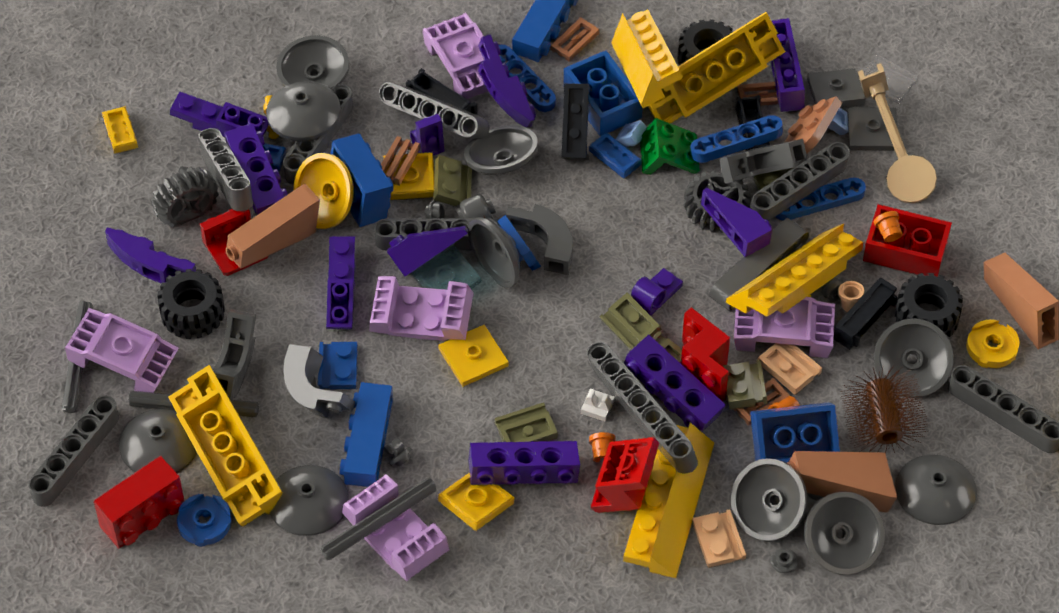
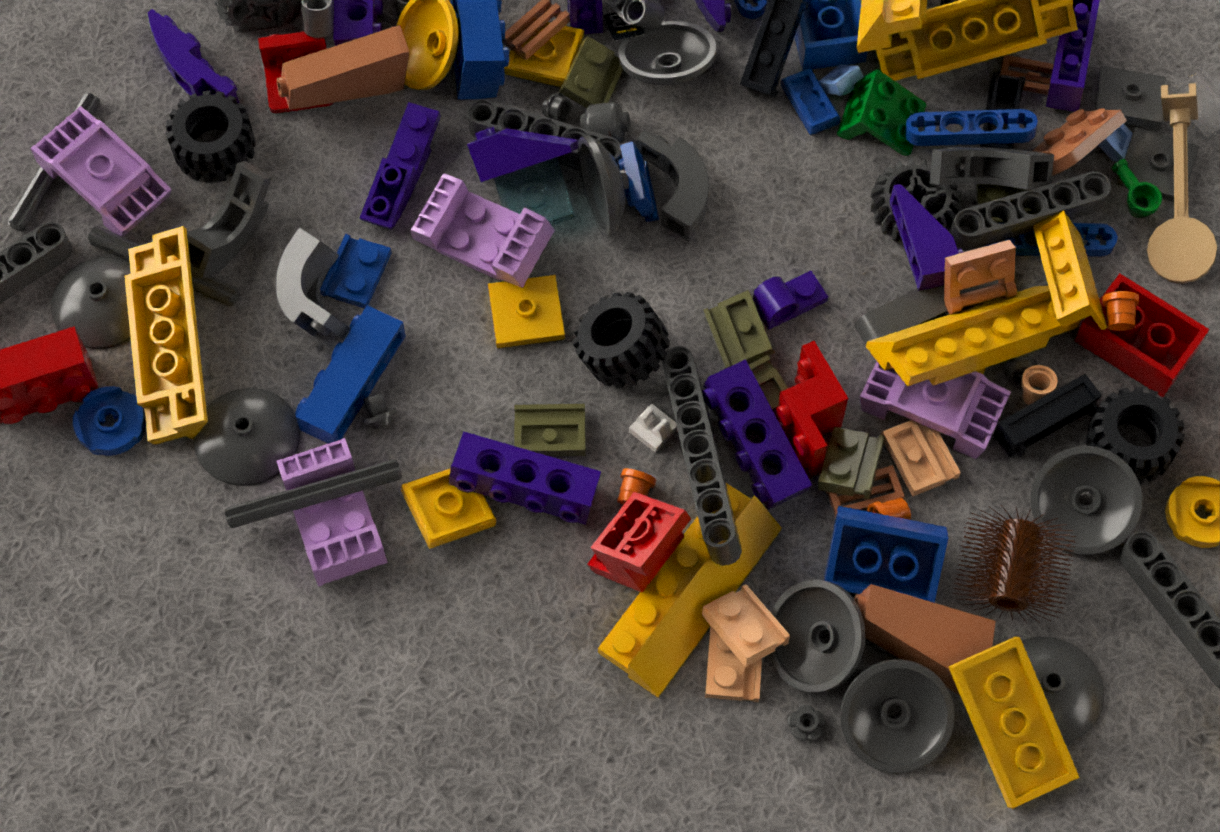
camera: 20 degrees right, 10 degrees up
(458, 142) = (620, 29): none -> black sticker
(564, 361) = (633, 356): none -> black tyre
(718, 509) = (745, 625): none -> light nougat plate
(781, 227) = (978, 268): none -> nougat plate
(841, 212) = (1068, 271): none -> yellow panel
(868, 149) = (1138, 191): none -> green bar
(923, 511) = (1013, 722): none -> yellow plate

